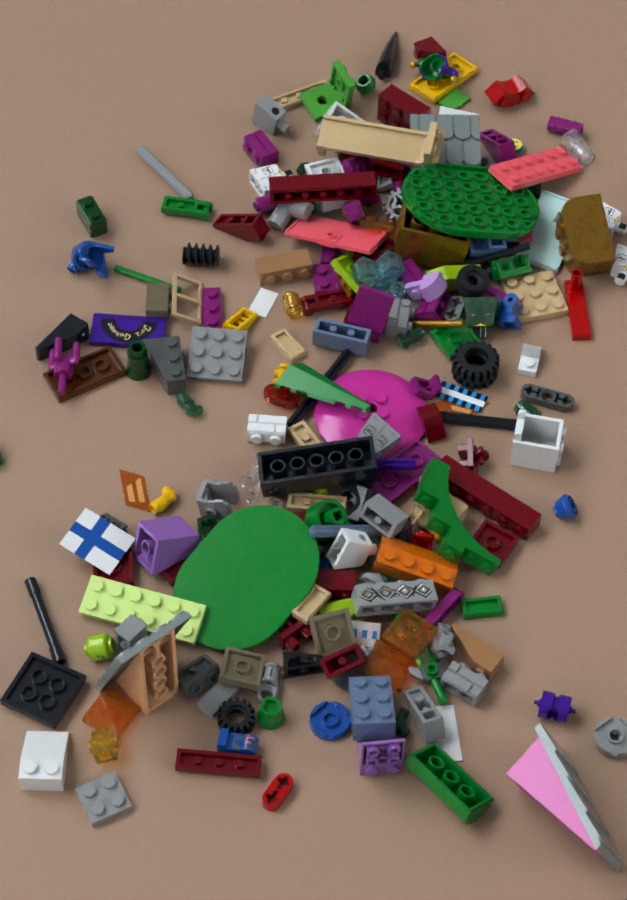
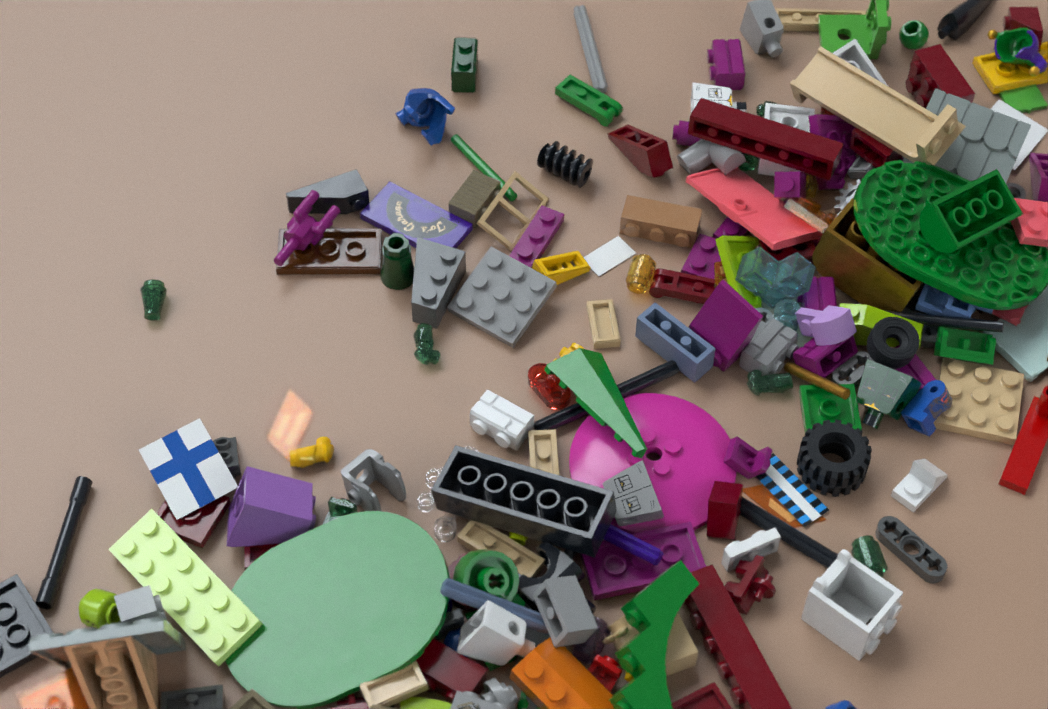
camera: 30 degrees right, 0 degrees up
(459, 438) = (760, 543): none -> white plate
(477, 185) = (968, 213): none -> green brick

